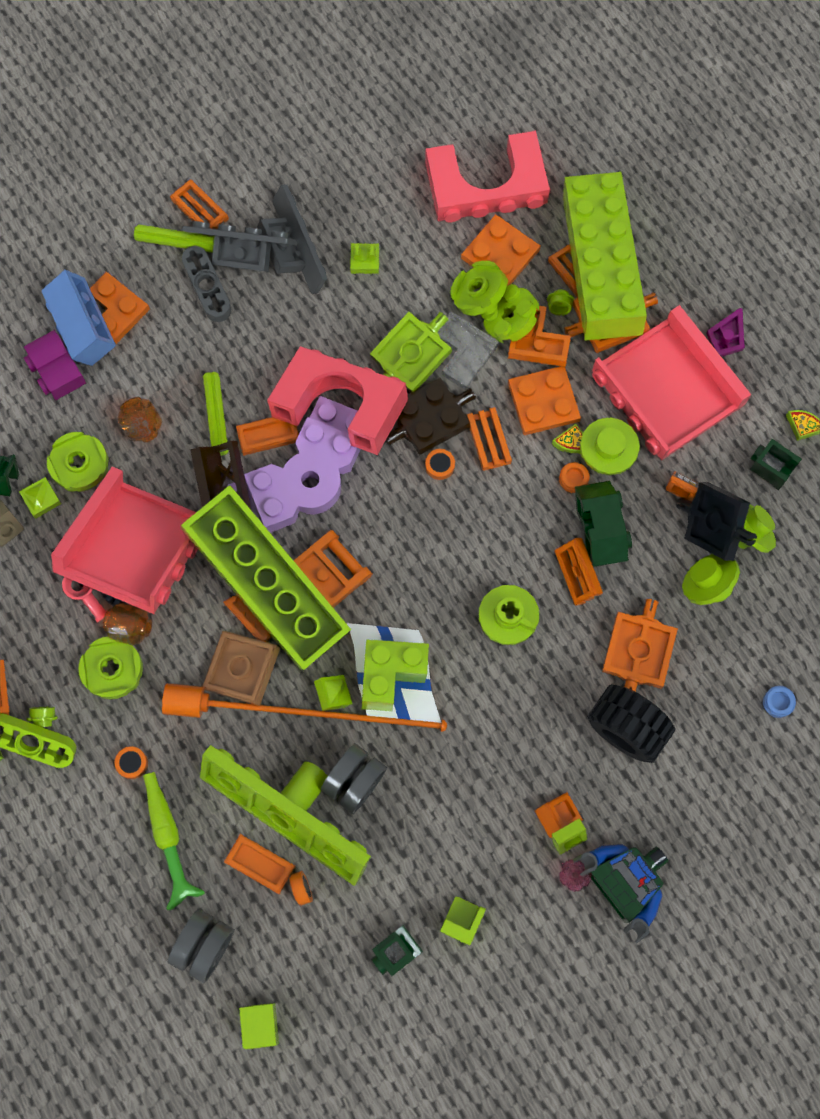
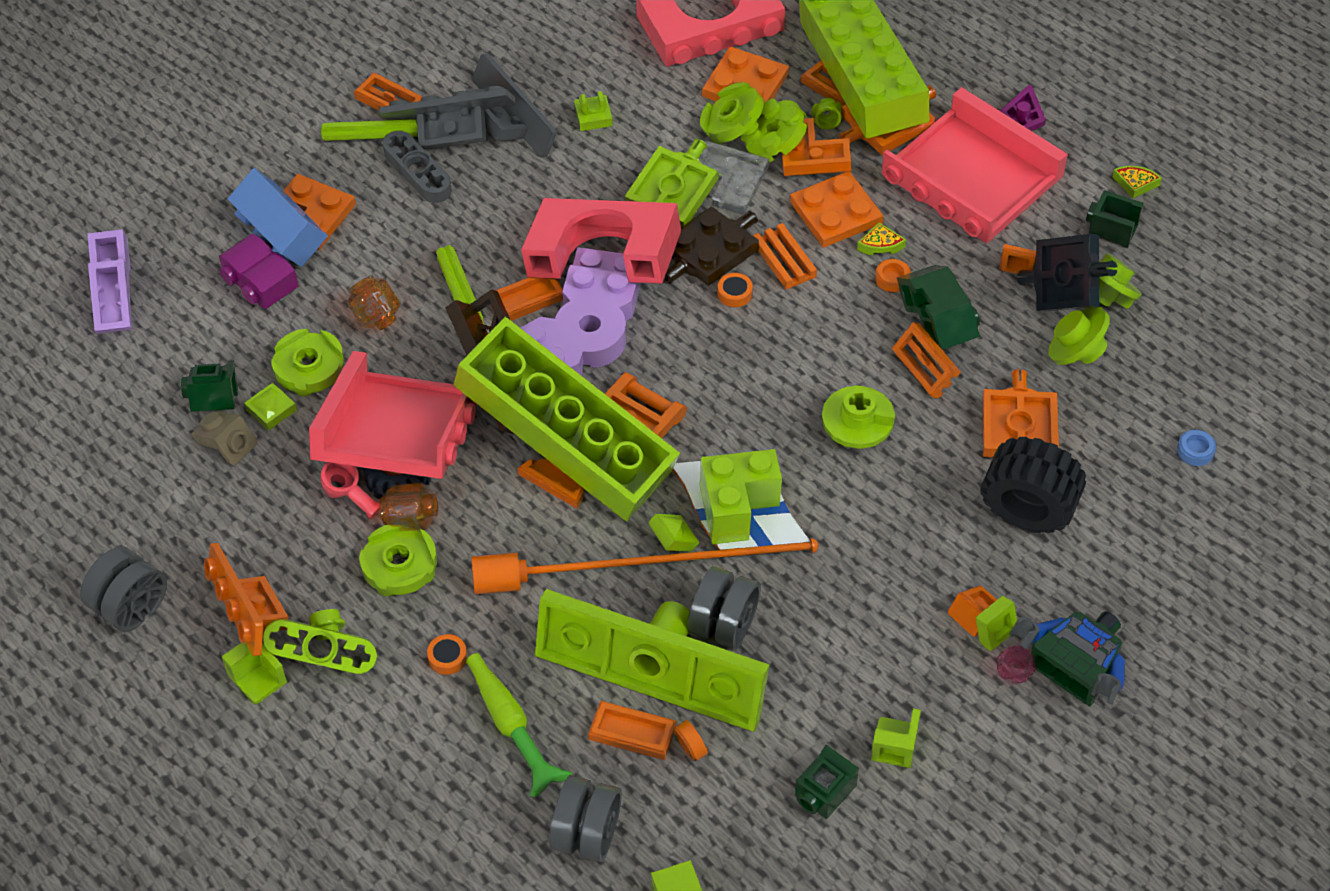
camera: 10 degrees left, 20 degrees down
(241, 668) = (557, 528): medium nougat tile -> none
(609, 446) = (924, 233): lime piece -> none

